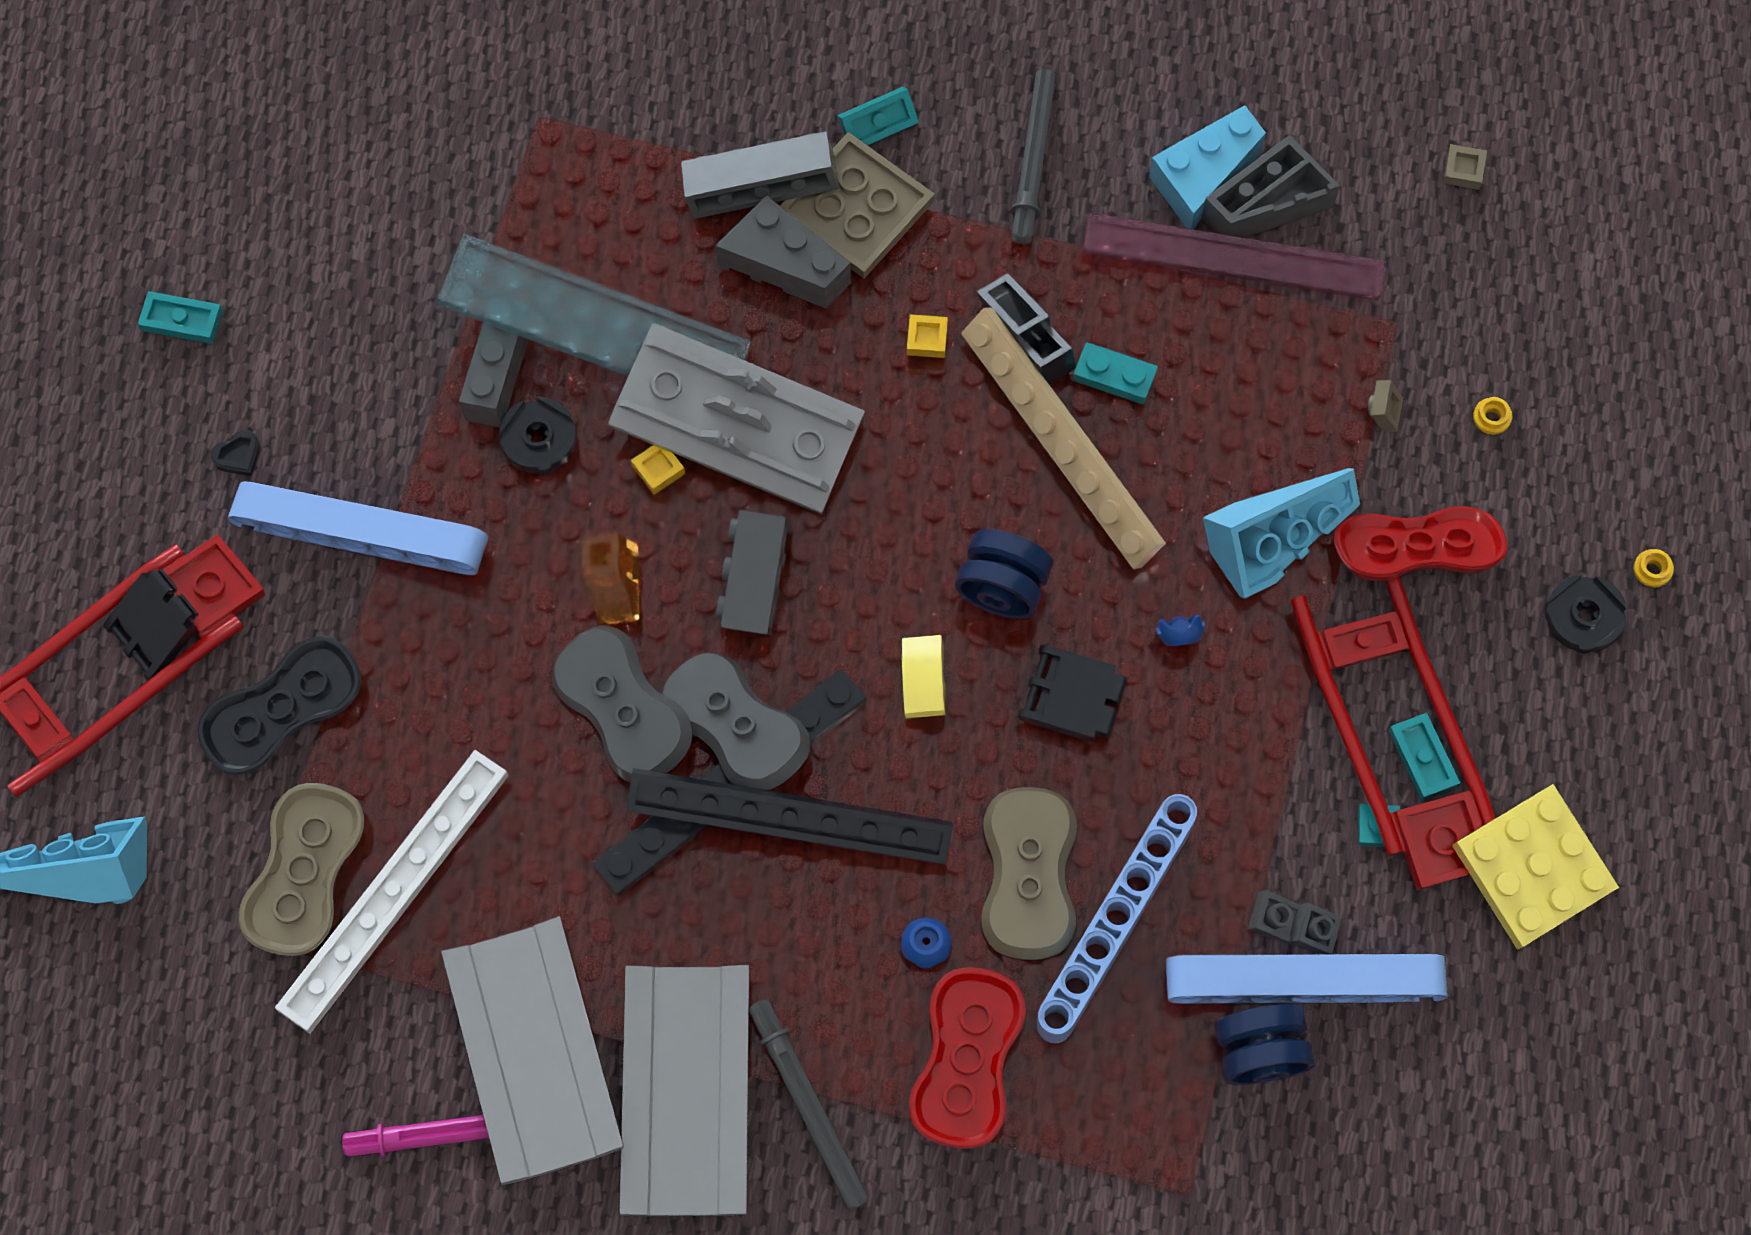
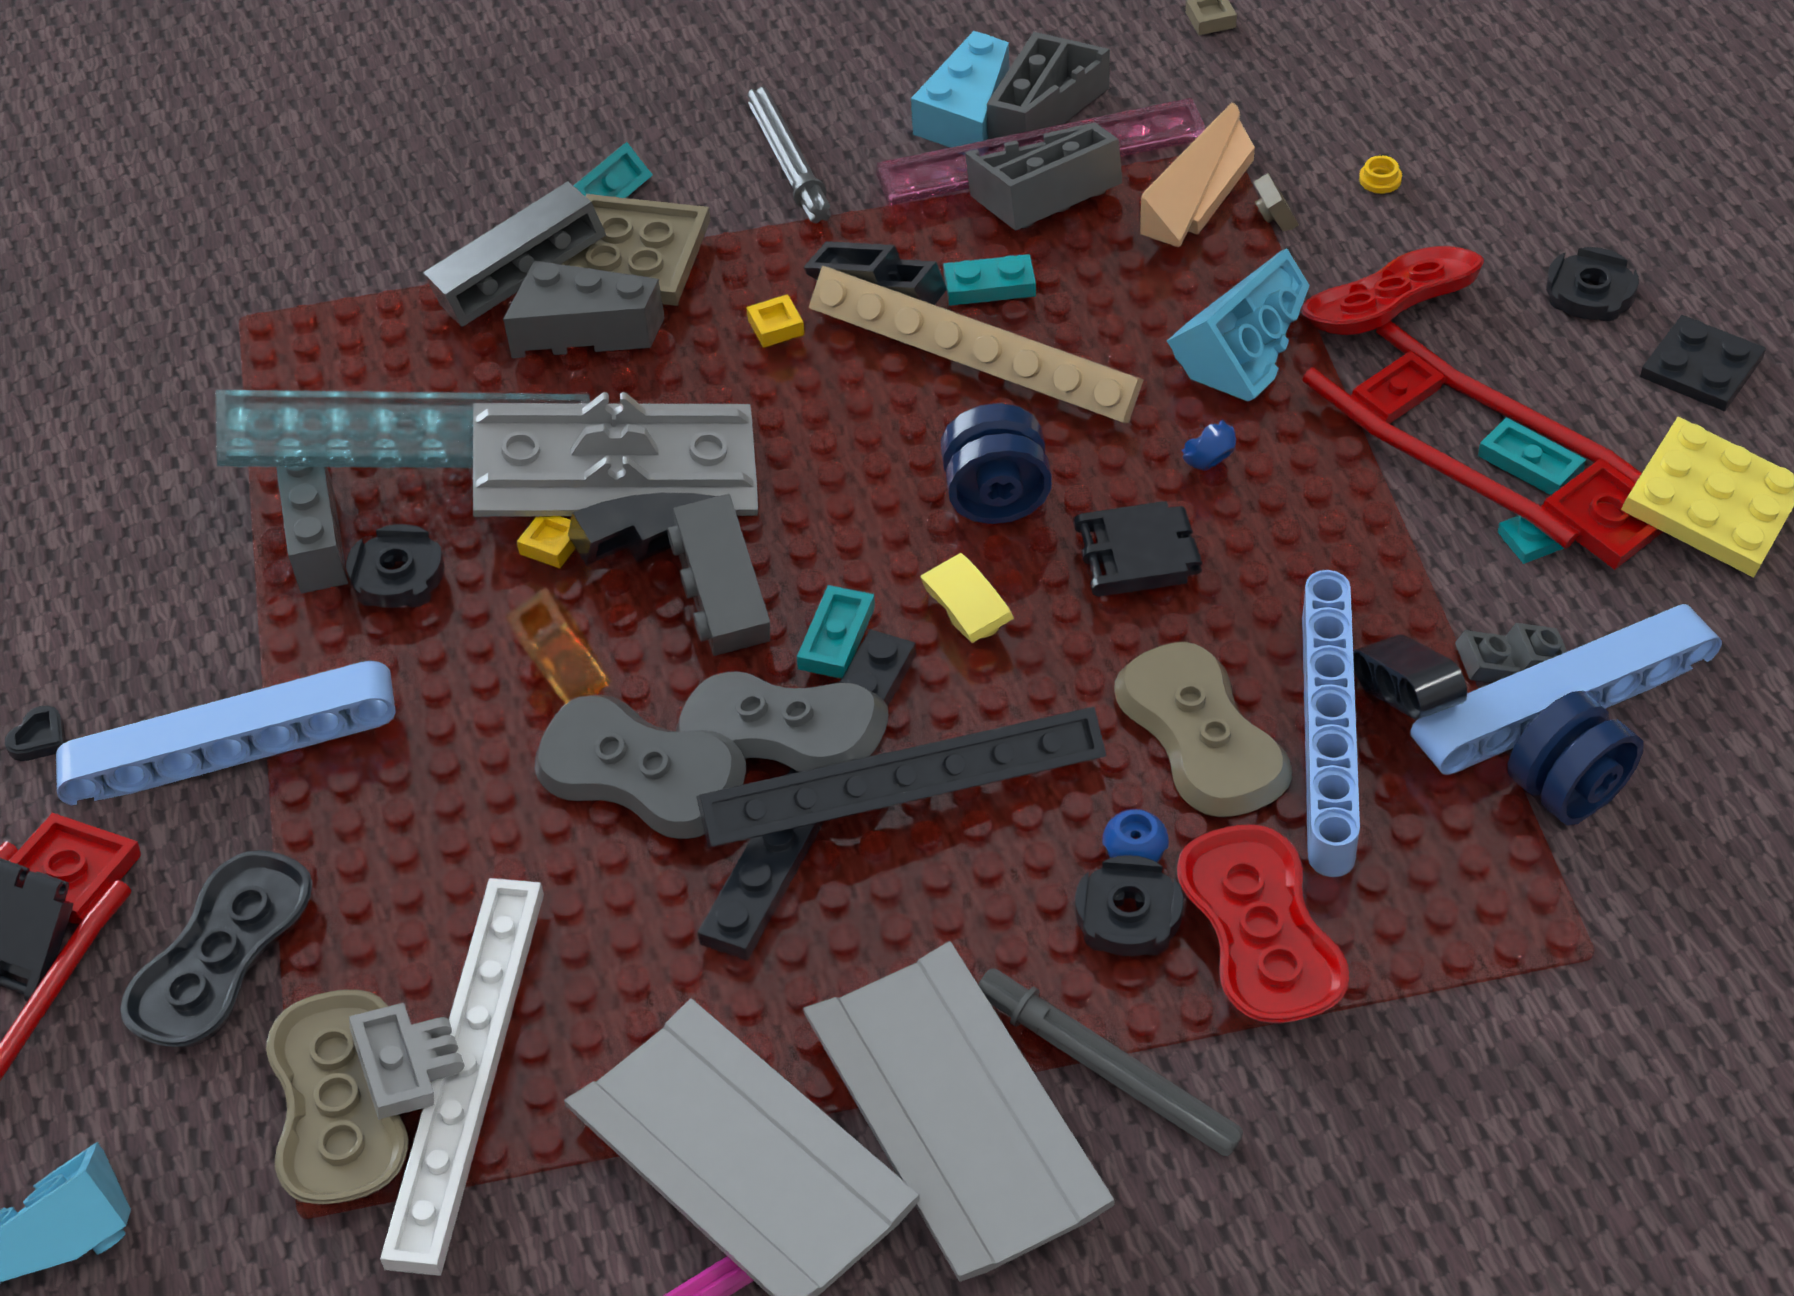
camera: 25 degrees left, 20 degrees down
(350, 869) = (403, 1057): none -> light grey hinge
(724, 493) = (629, 523): none -> black slope
(816, 657) = (836, 631): none -> teal plate
(889, 1019) = (1128, 932): none -> black plate
(1187, 919) = (1409, 676): none -> black beam
(1212, 295) = (1045, 176): none -> dark grey wedge
(1334, 357) = (1197, 180): none -> light nougat wedge
(1621, 733) = (1703, 362): none -> black plate
(1656, 557) = (1624, 225): yellow plate -> none

